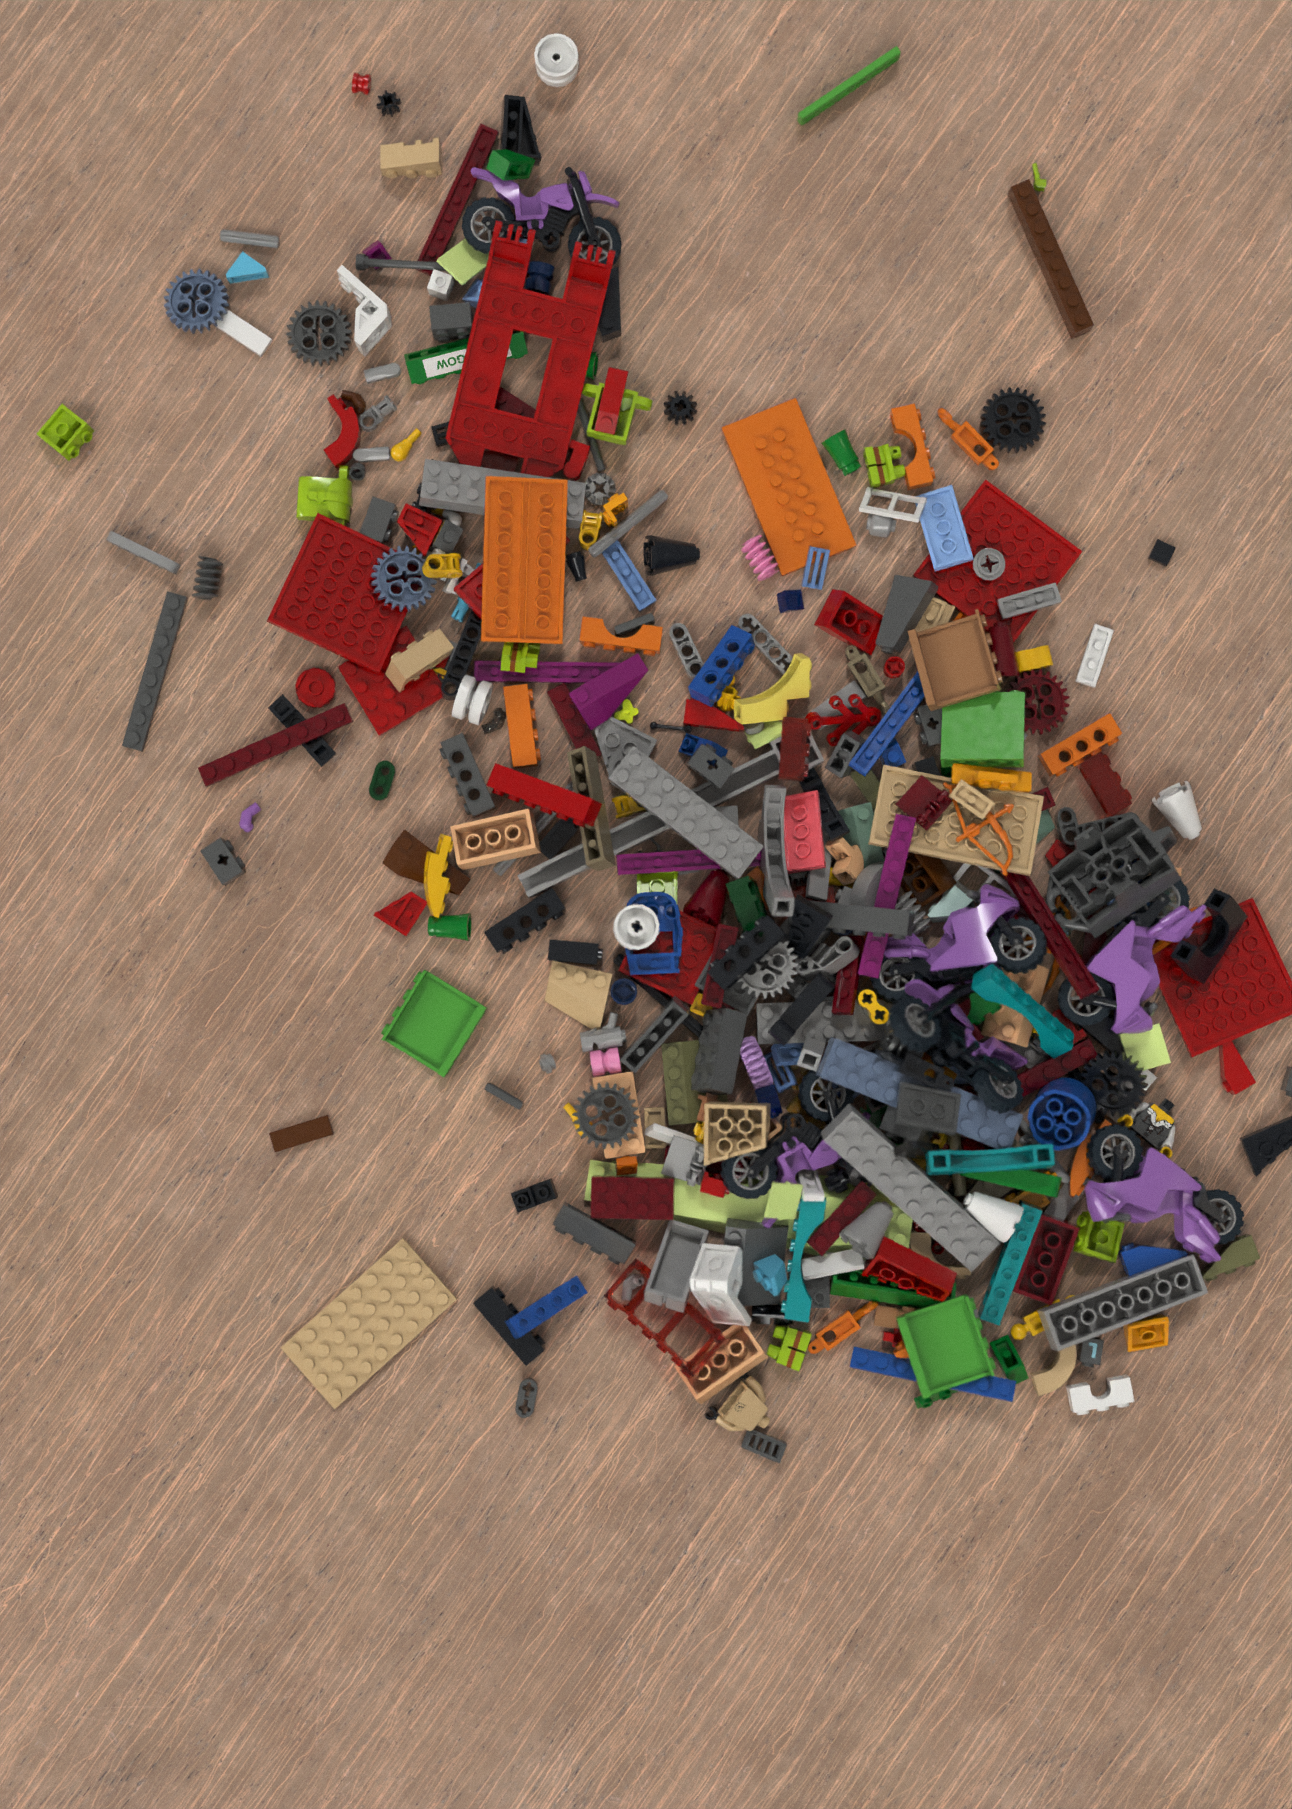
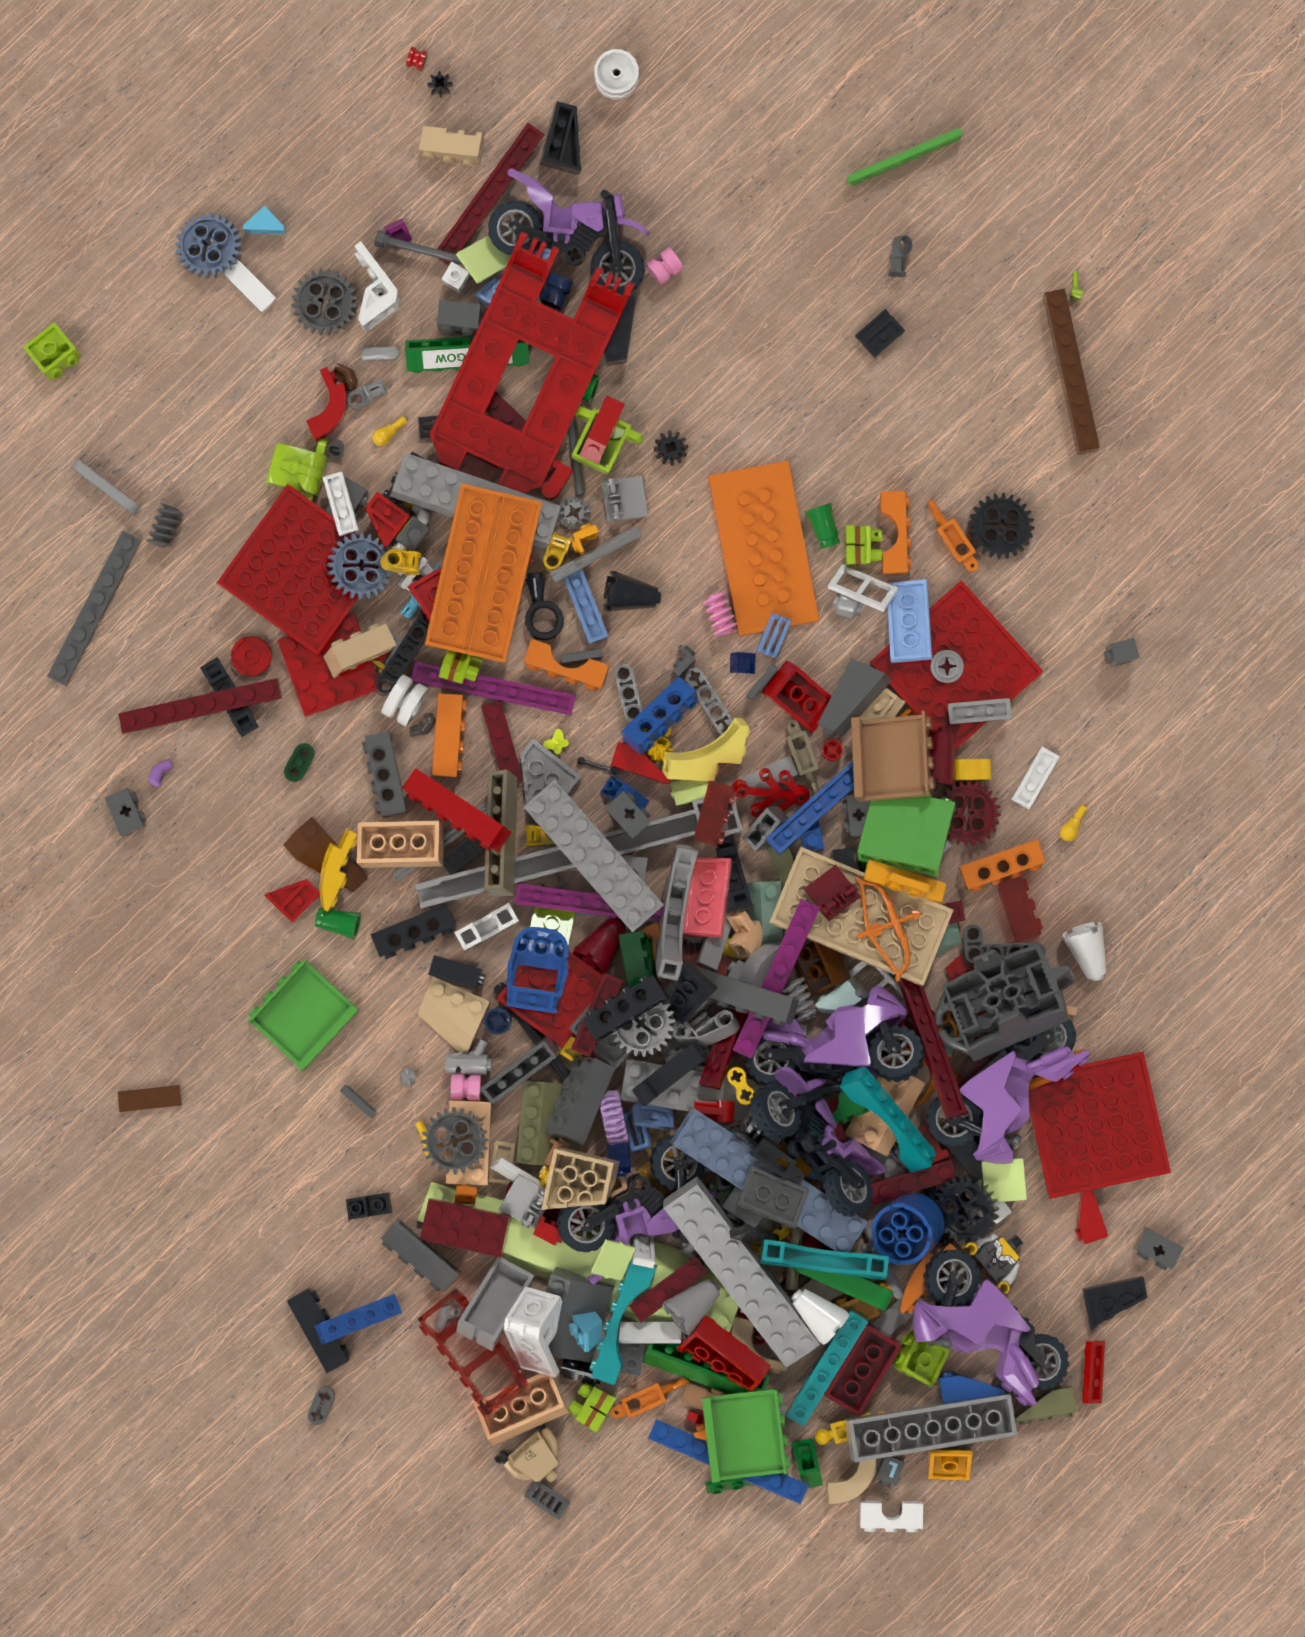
camera: 10 degrees right, 0 degrees up
(249, 238) = (274, 192): light grey axle -> none
(369, 1323) = (179, 1300): tan plate -> none
(372, 454) = (354, 434): light grey bar -> none
(372, 522) = (340, 504): none -> white tile
(510, 165) = (548, 173): green slope -> none
(591, 581) = (547, 605): none -> black tyre
(595, 903) = (486, 927): none -> white arch
(603, 694) = (539, 719): magenta wedge -> none
(638, 915) = (533, 960): white wheel -> none
(641, 233) = (663, 267): none -> bright pink wheel
(645, 465) = (624, 498): none -> light grey hinge
(733, 613) = (681, 664): none -> dark grey bracket
(753, 728) = (679, 784): light grey tile -> none
(811, 1053) = (670, 1120): light grey brick -> none
(813, 615) = (761, 683): none -> dark grey tile
(837, 1180) = (671, 1250): black gear -> none
(856, 1035) = (719, 1111): none -> red piece
(859, 259) = (879, 333): none -> black plate
(863, 180) = (899, 256): none -> dark grey connector
(972, 799) = (880, 899): tan plate -> none
(1139, 697) = (1069, 830): none -> yellow piece
(1154, 517) = (1121, 652): none -> dark grey brick
(1161, 552) = (1123, 688): black tile -> none
(1227, 921) = (1109, 1073): black arch -> none
(1267, 1216) = (1093, 1372): none -> red plate

